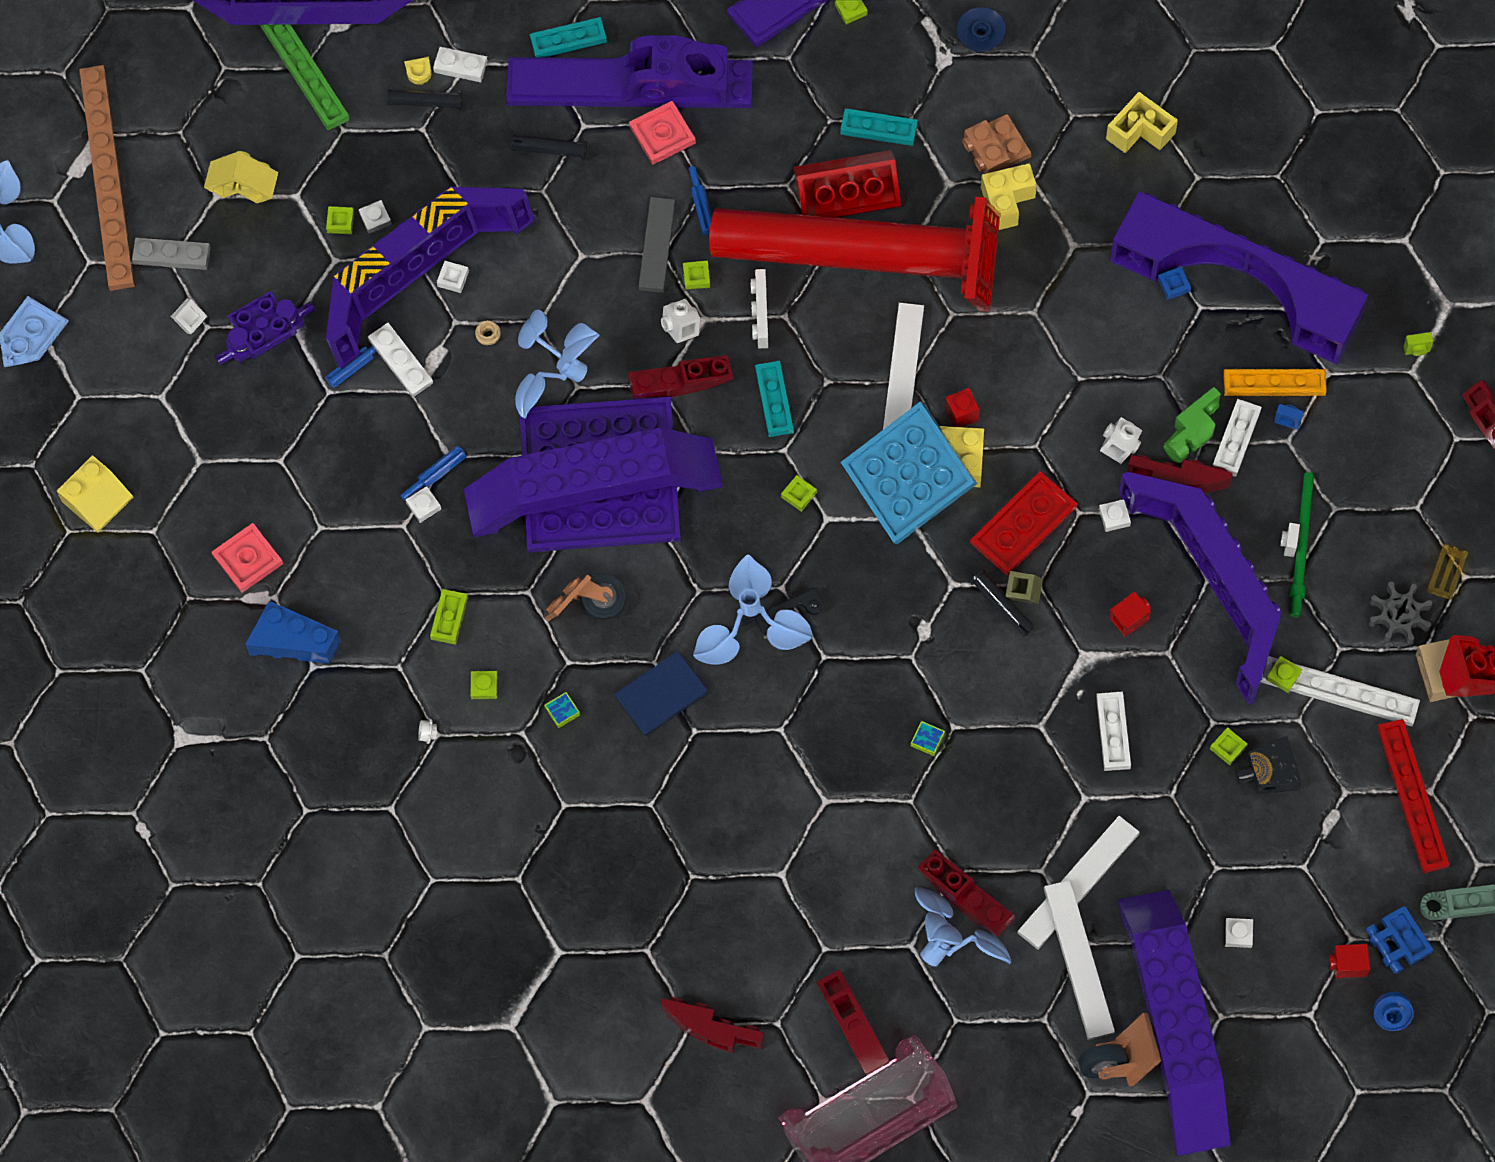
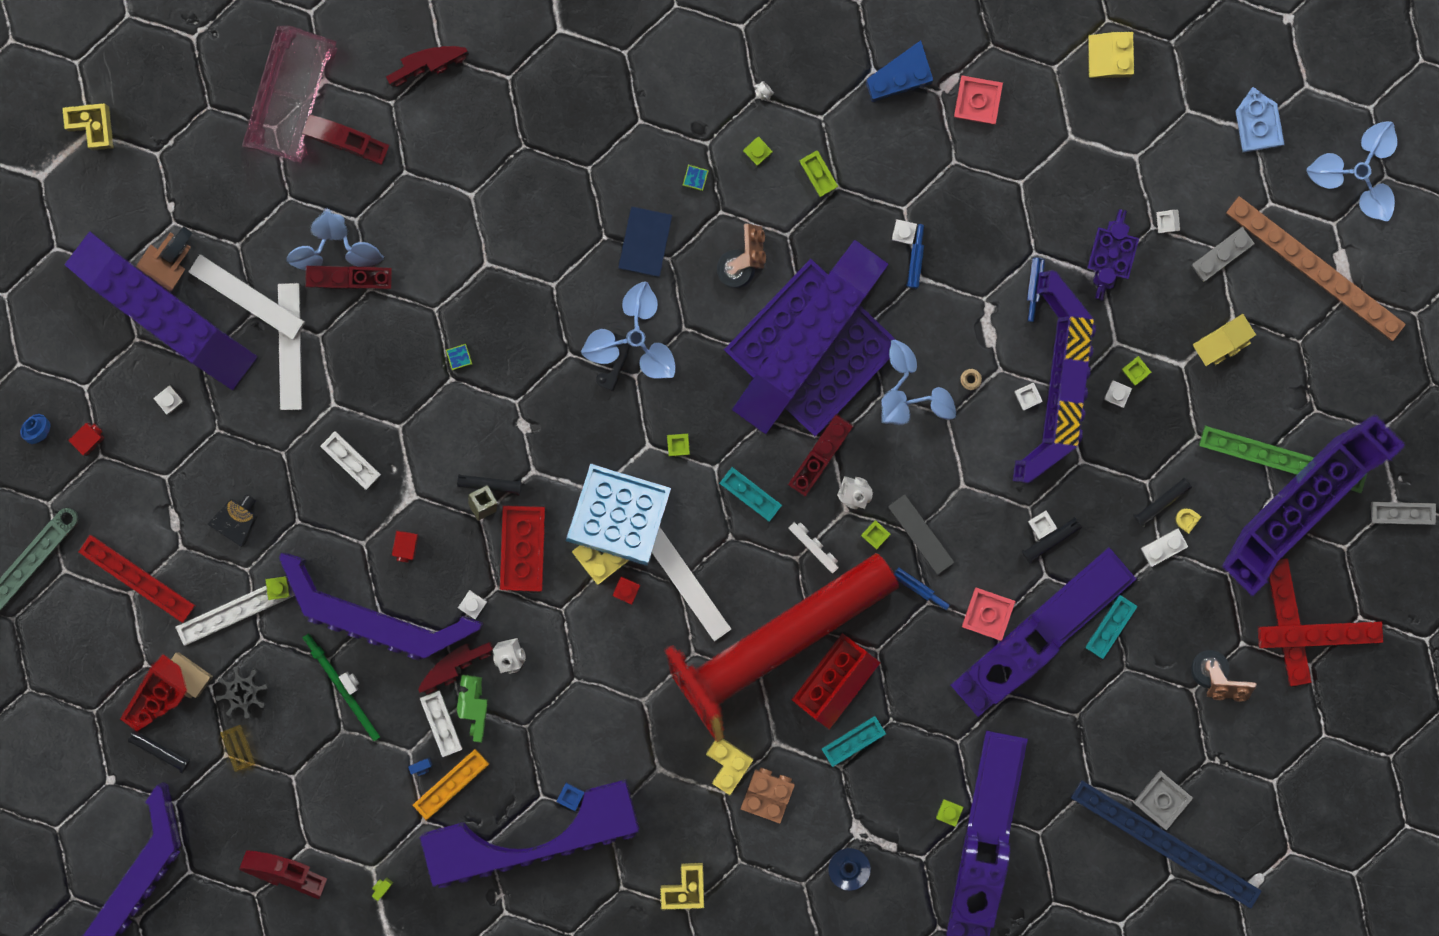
camera: 135 degrees right, 20 degrees up
(400, 360) = (1007, 311): white plate -> none
(545, 164) = (1042, 524): none -> white plate
(1228, 746) = (272, 512): lime plate -> none
(1405, 934) = (68, 485): blue plate -> none

